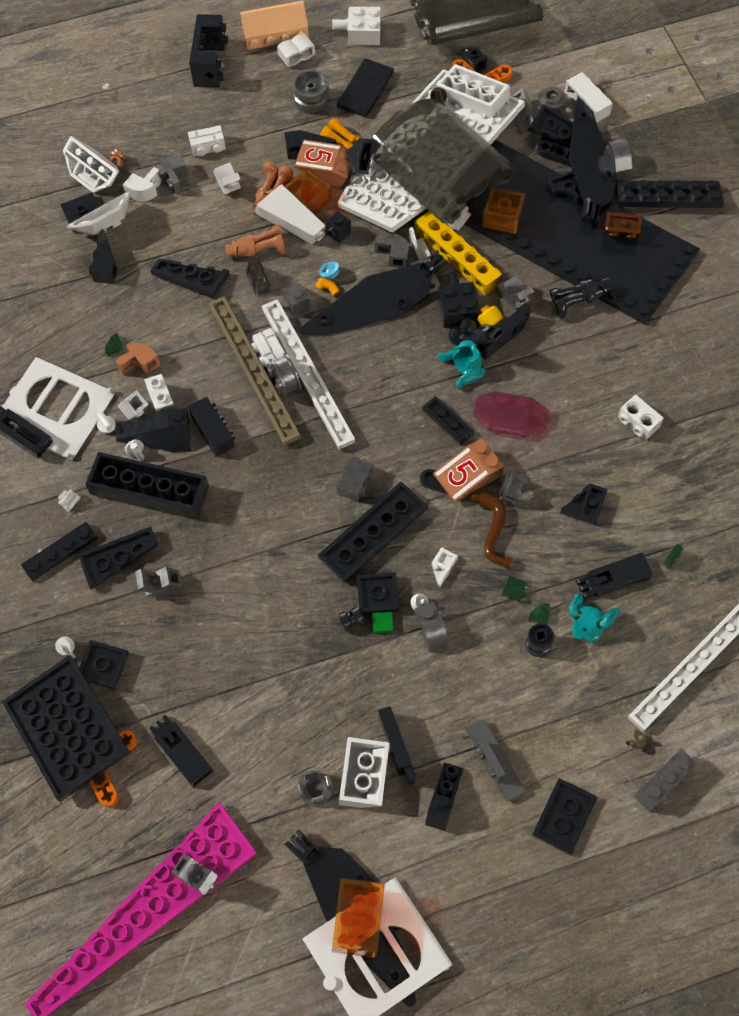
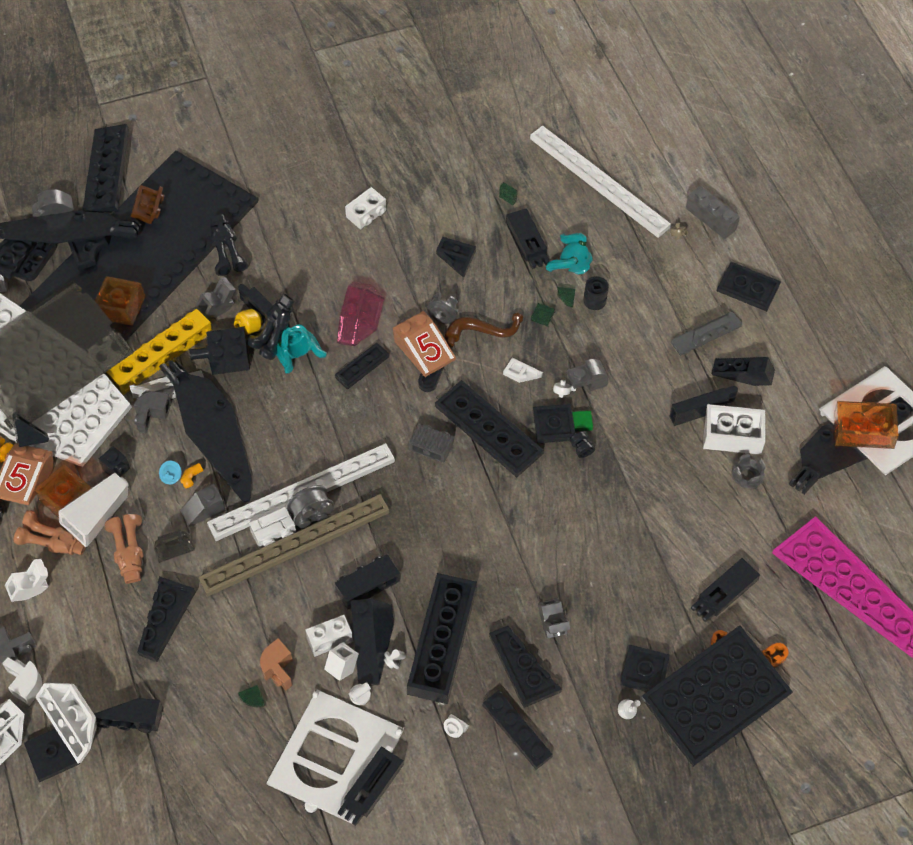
camera: 95 degrees left, 5 degrees down
(195, 874) = (849, 556): flat silver brick -> none

